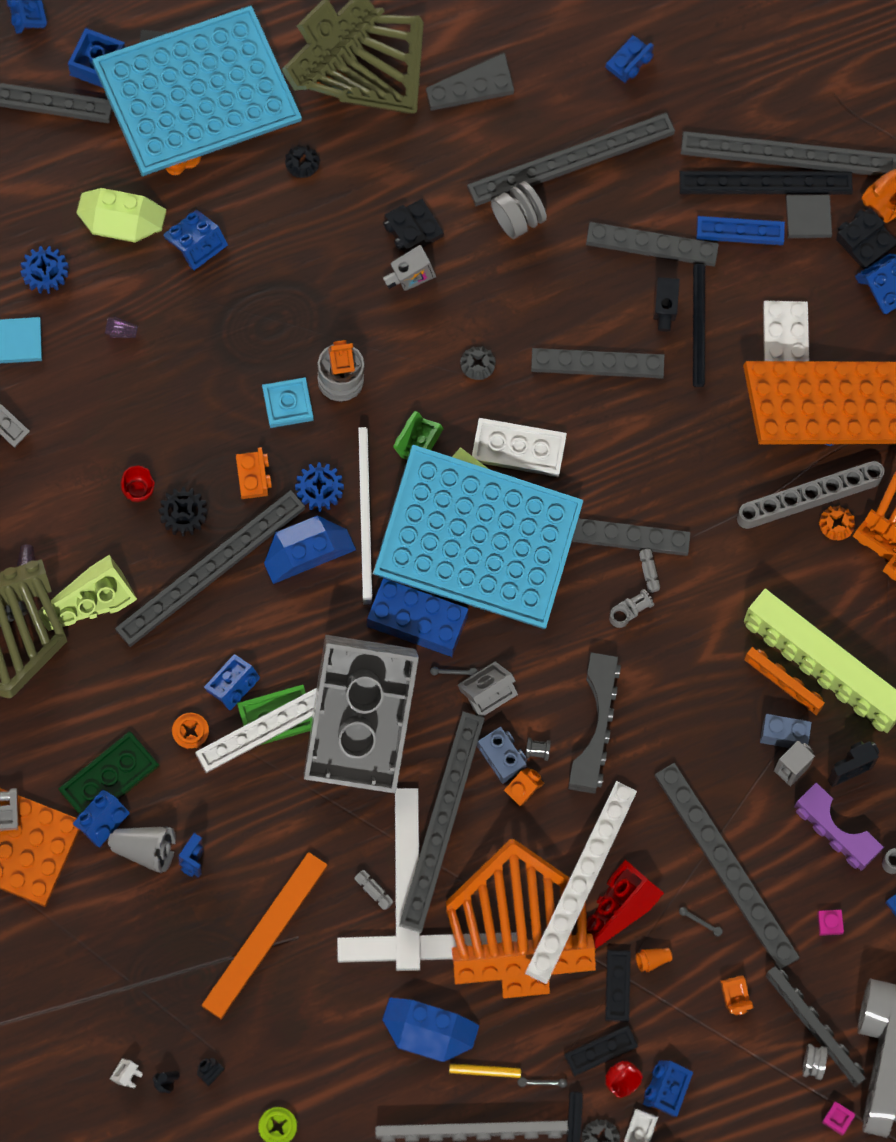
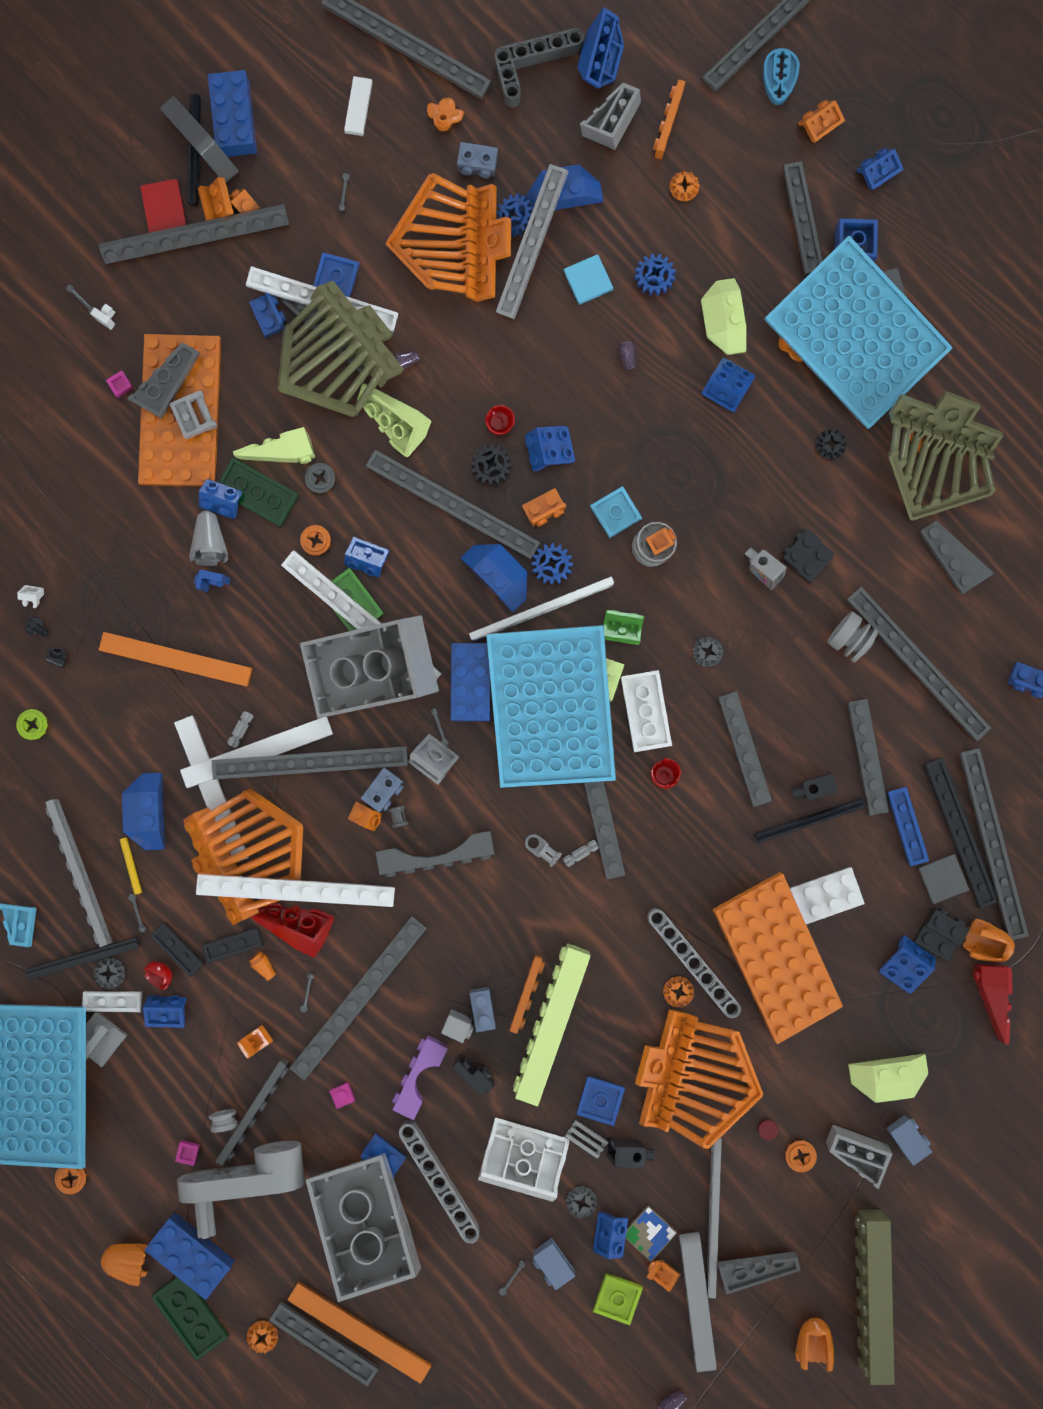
camera: 70 degrees right, 15 degrees up
(77, 715) = (291, 447): none -> yellowish green wedge
(124, 691) = (319, 469): none -> dark grey gear
(188, 445) = (549, 447): none -> blue bracket
(594, 449) = (665, 773): none -> red hair

